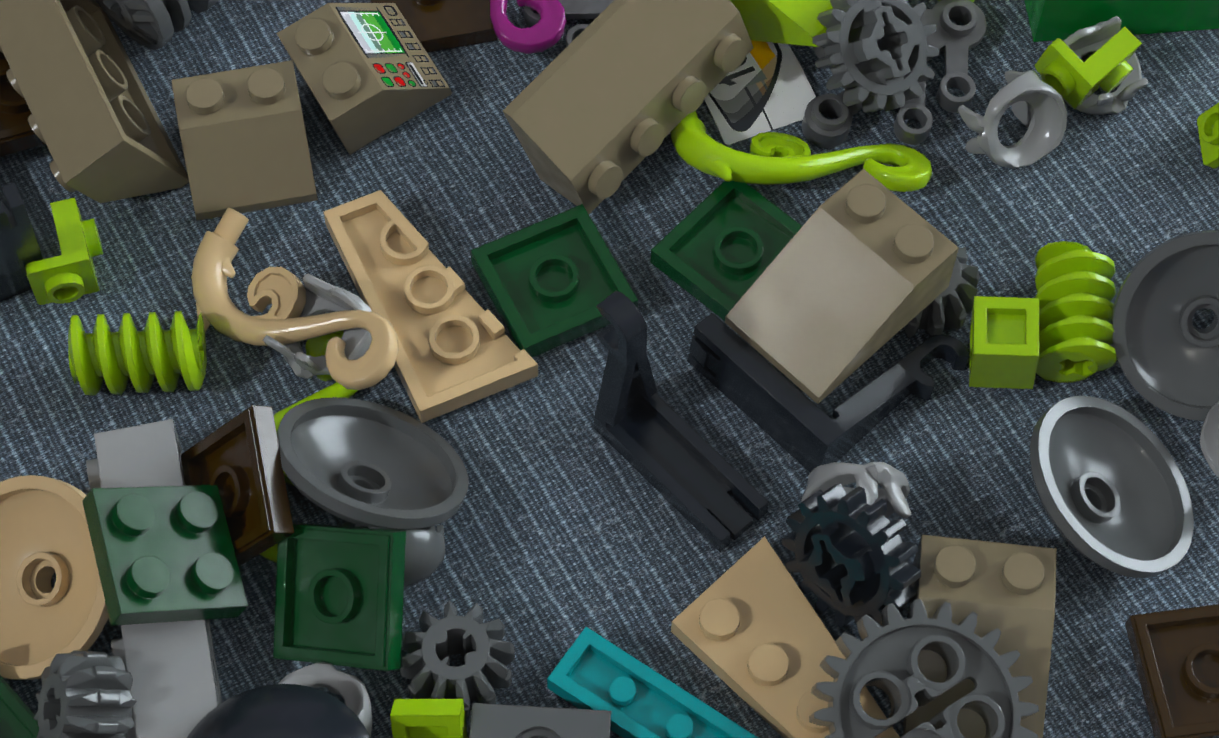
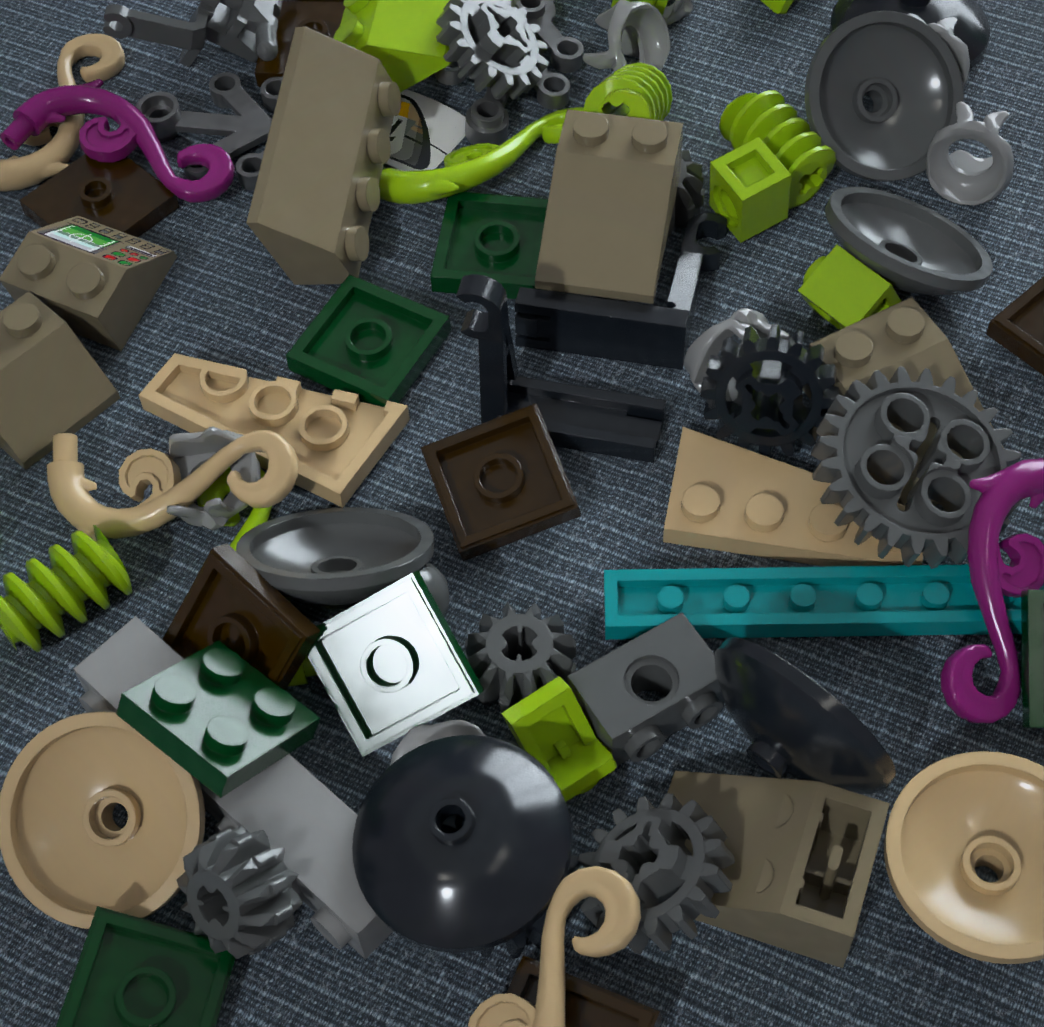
camera: 30 degrees left, 5 degrees down
(565, 486) = (500, 482): none -> dark brown plate
(960, 184) = (637, 86): none -> lime piece
(1007, 503) = (845, 289): none -> lime brick

